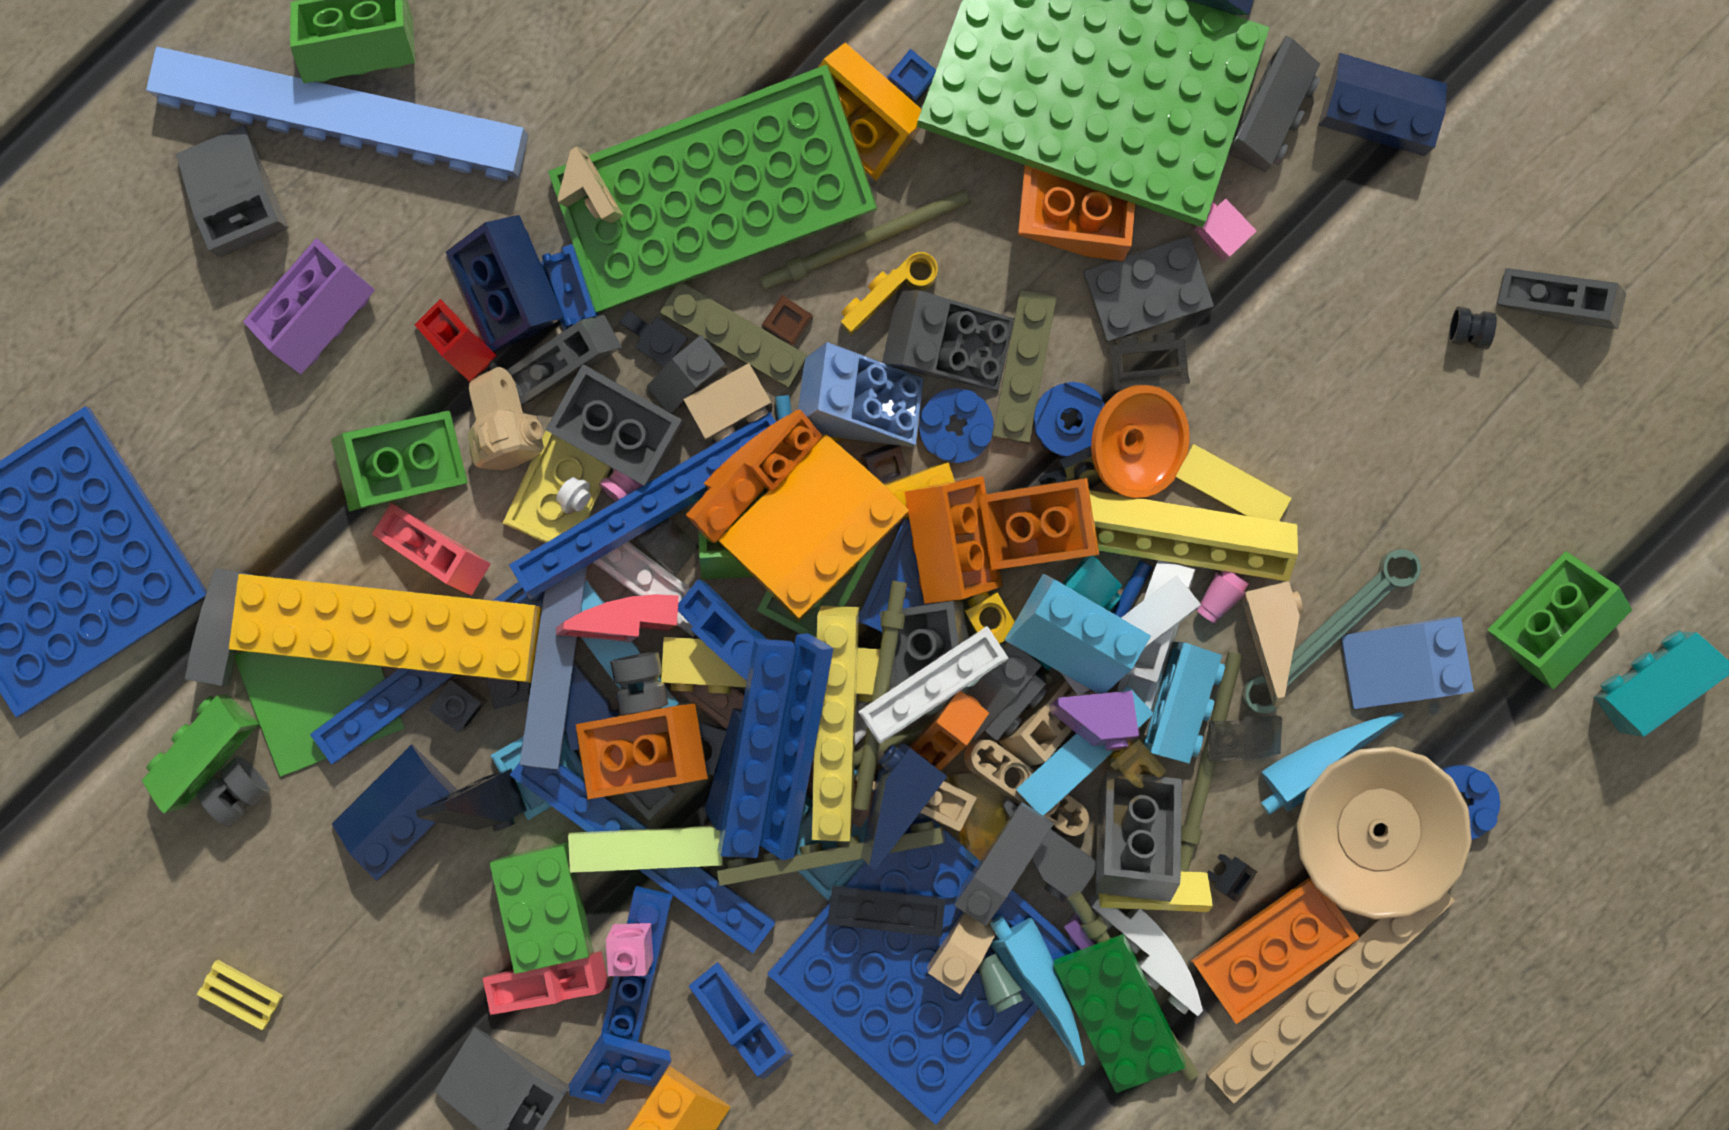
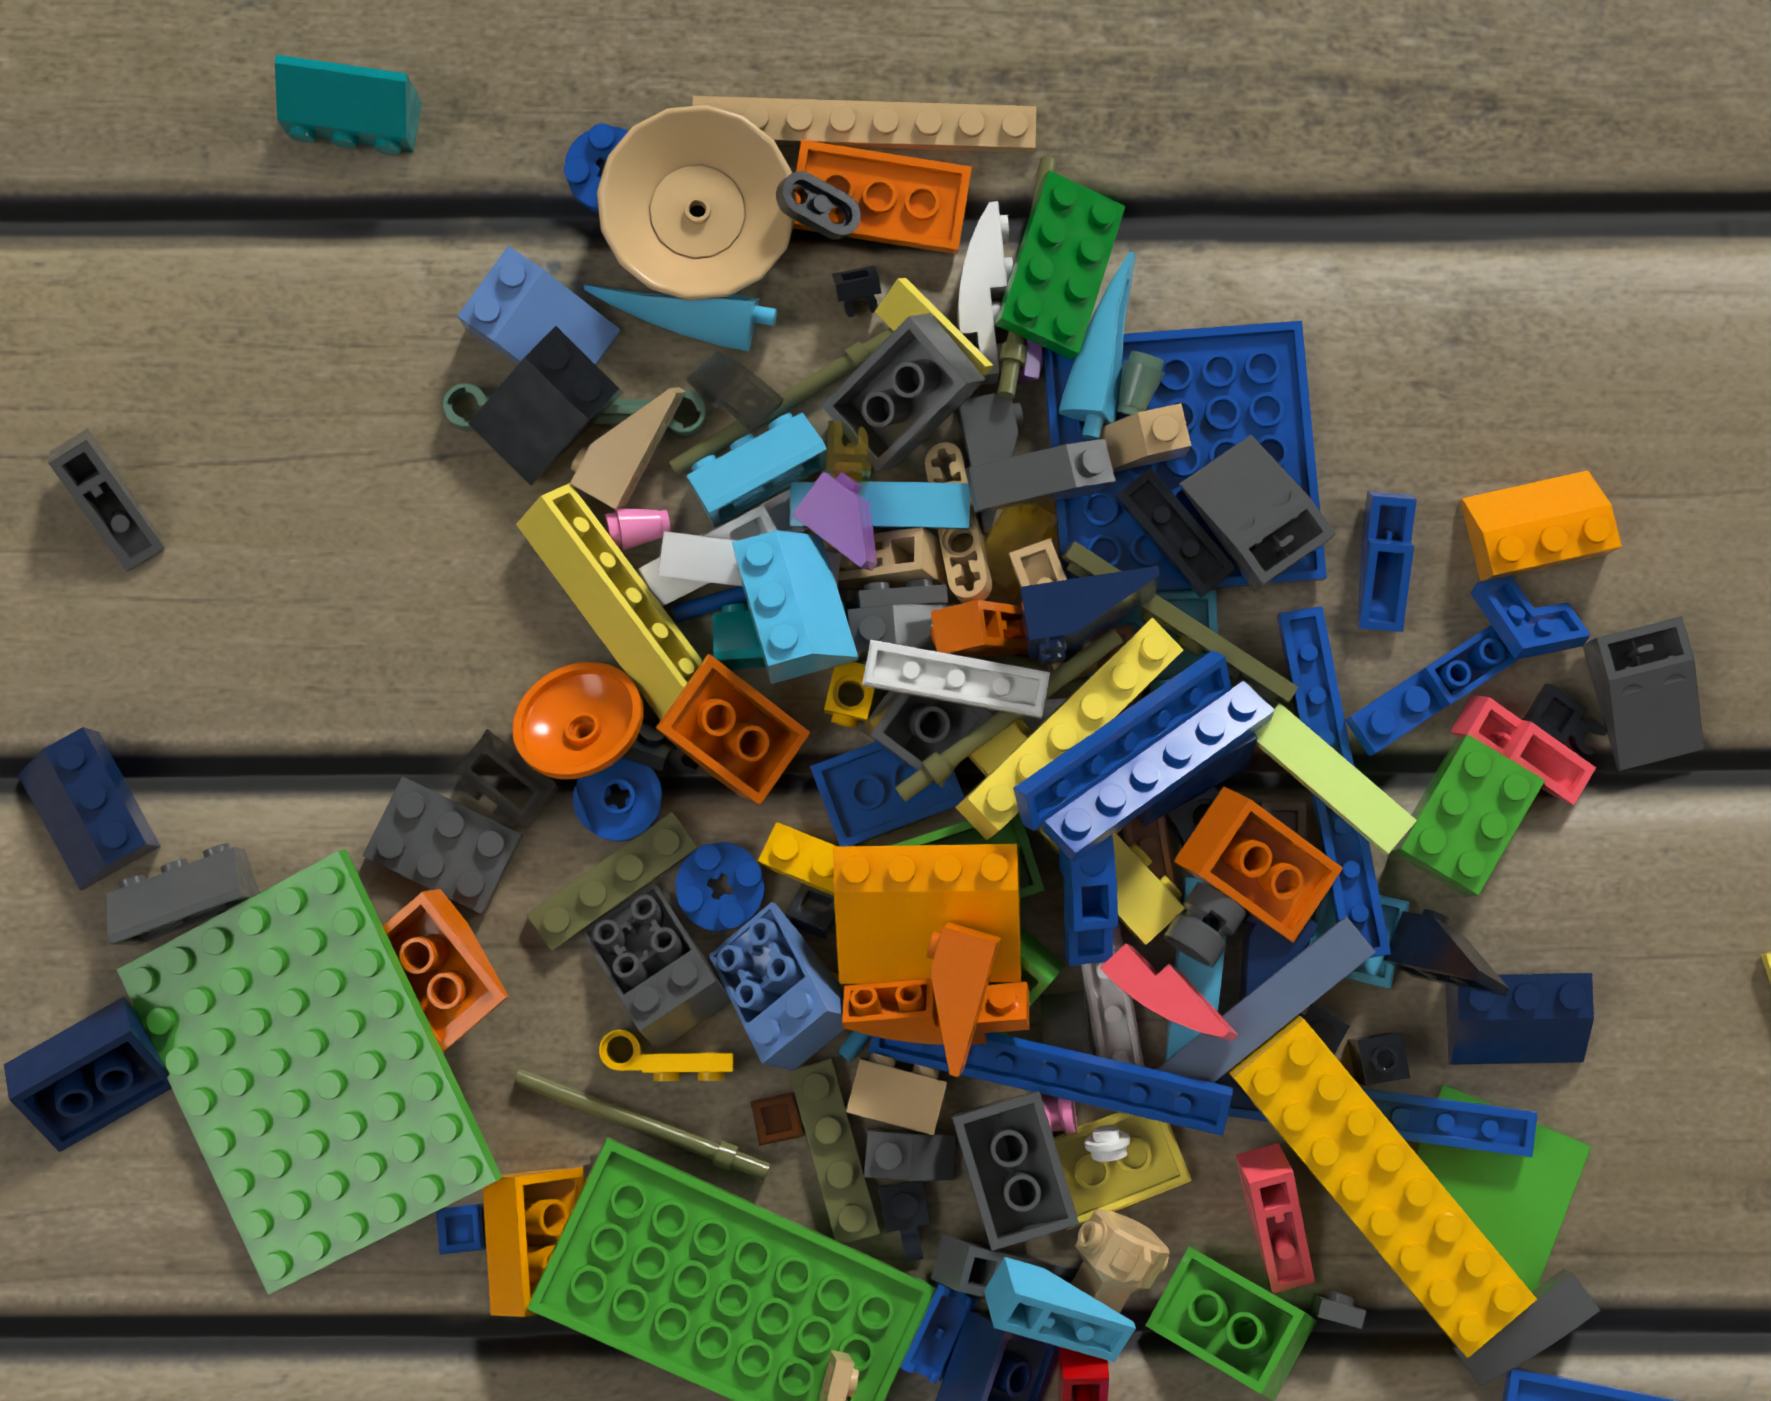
camera: 140 degrees left, 5 degrees down
(198, 752) = (1646, 1235): bright green slope -> none
(243, 783) = (1649, 1171): dark grey wheel -> none
(343, 530) = (1338, 1308): none -> dark grey plate
(512, 363) = (1050, 1310): none -> medium azure slope
(541, 1025) = (1560, 718): none -> black plate
(629, 949) = (1427, 705): bright pink brick -> none
(755, 502) = (960, 980): none -> orange slope
(849, 972) = (1257, 512): none -> dark grey slope
(951, 540) = (820, 790): orange slope -> none
(1225, 229) = (328, 829): bright pink brick -> none
(1231, 486) = (538, 610): light yellow tile -> none
(1309, 904) = (816, 202): none -> black plate
(1351, 614) = (544, 406): none -> black slope
(1472, 328) = (203, 543): black wheel -> none
(1560, 619) = (377, 238): bright green slope -> none

